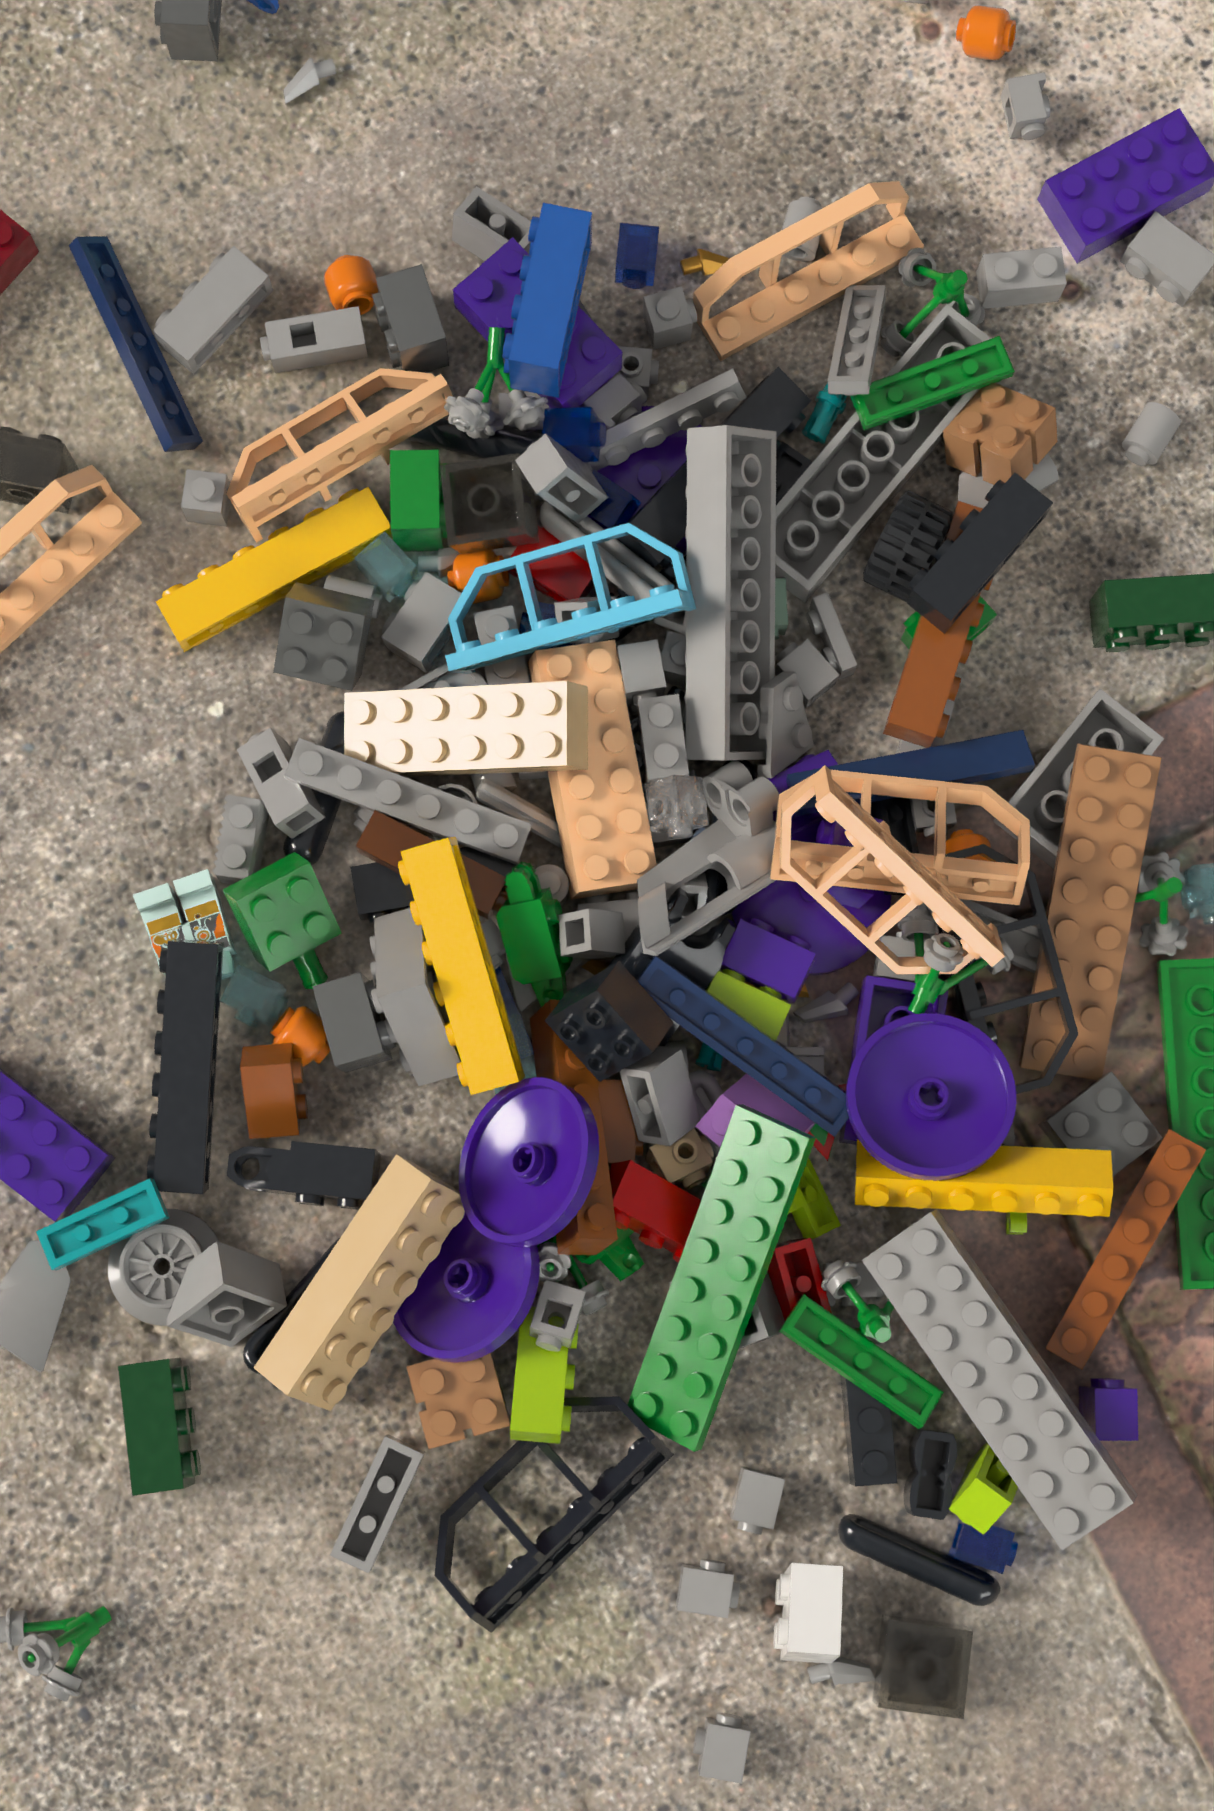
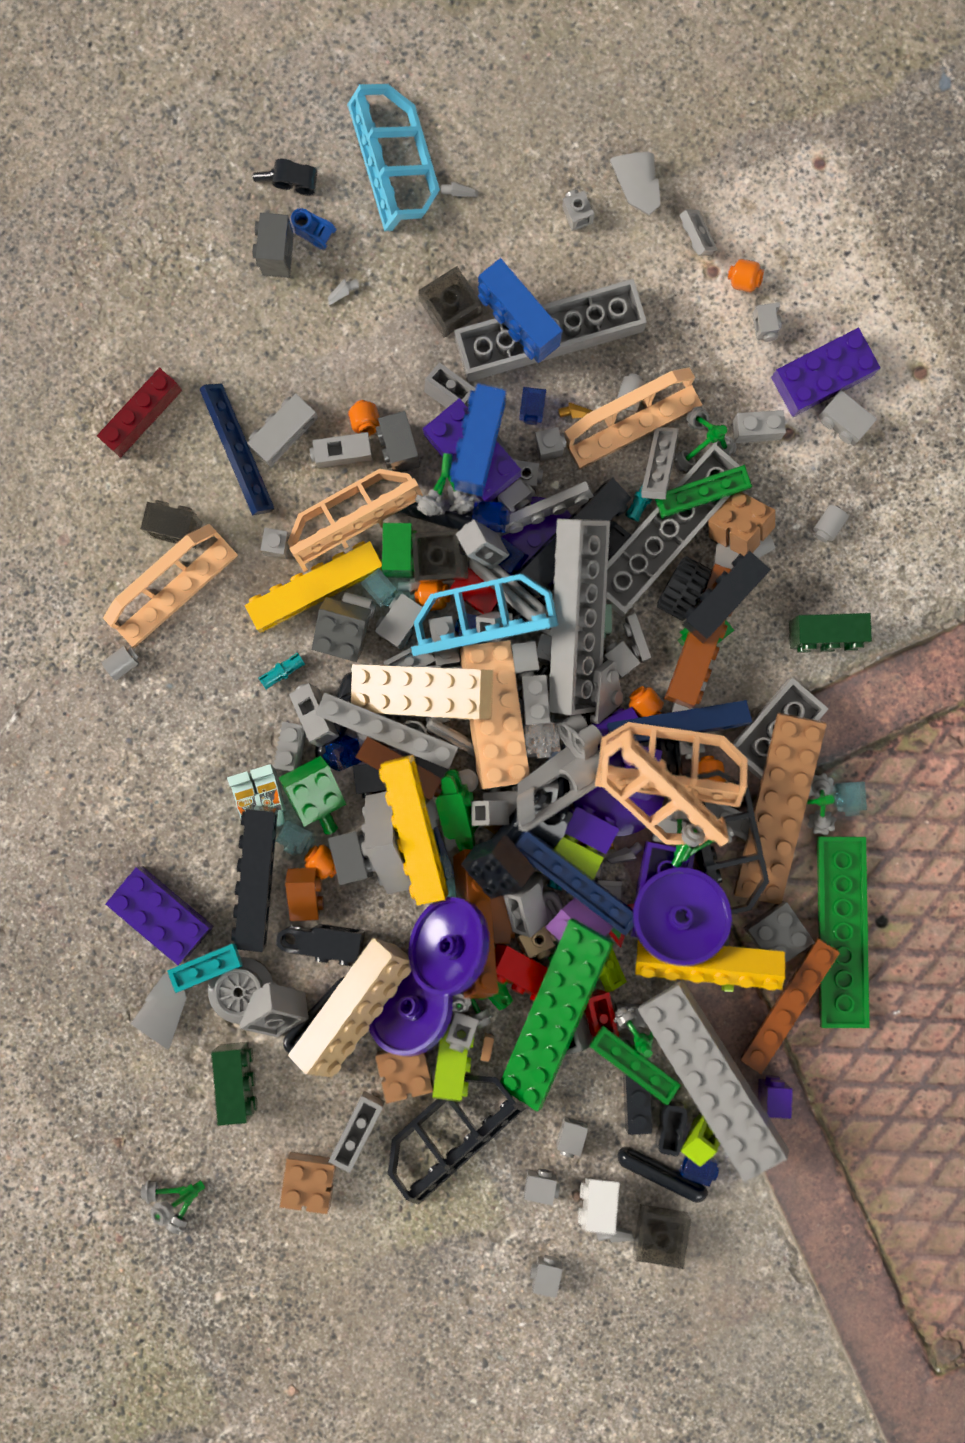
camera: 10 degrees right, 5 degrees up
(222, 713) = (281, 671): none -> teal pin
(292, 1599) = (306, 1183): none -> medium nougat piece
(332, 846) = (342, 753): none -> clear blue brick
(491, 89) = (450, 301): none -> clear smoke brick
(602, 1347) = (487, 1047): none -> medium nougat tile
(608, 94) = (518, 311): none -> blue brick
(662, 130) = (584, 321): none -> light grey brick
(851, 740) = (645, 702): none -> orange head

